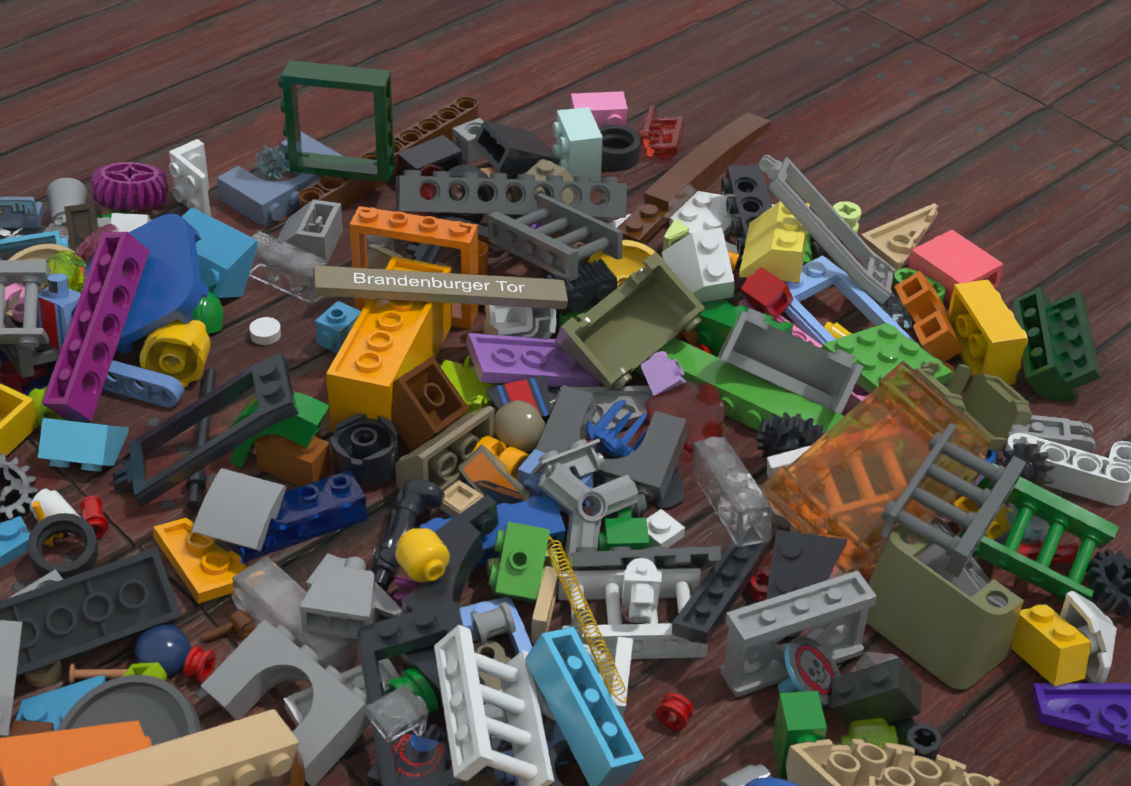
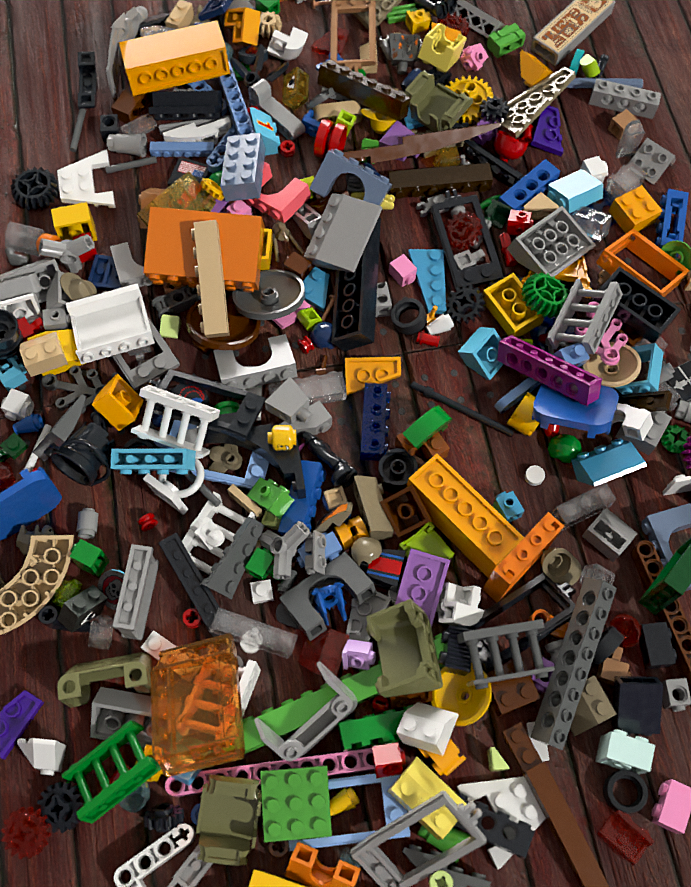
camera: 120 degrees right, 25 degrees up
(70, 265) = (601, 367): clear neon green head -> none
(88, 247) = (623, 394): clear pink gear -> none
(239, 509) = (377, 386): light grey slope -> none
(275, 405) = (435, 419): black animal -> none
(398, 714) = (205, 390): clear bracket -> none
(439, 287) = (474, 547): dark tan tile -> none
(493, 622) = (241, 465): light grey bush -> none
(580, 620) = (209, 493): yellow piece -> none
(786, 434) = (266, 692): black gear -> none
(801, 562) = (173, 624): black wing -> none
(972, 524) = (115, 712): dark grey fence -> none
(1051, 645) = (50, 724): yellow brick -> none

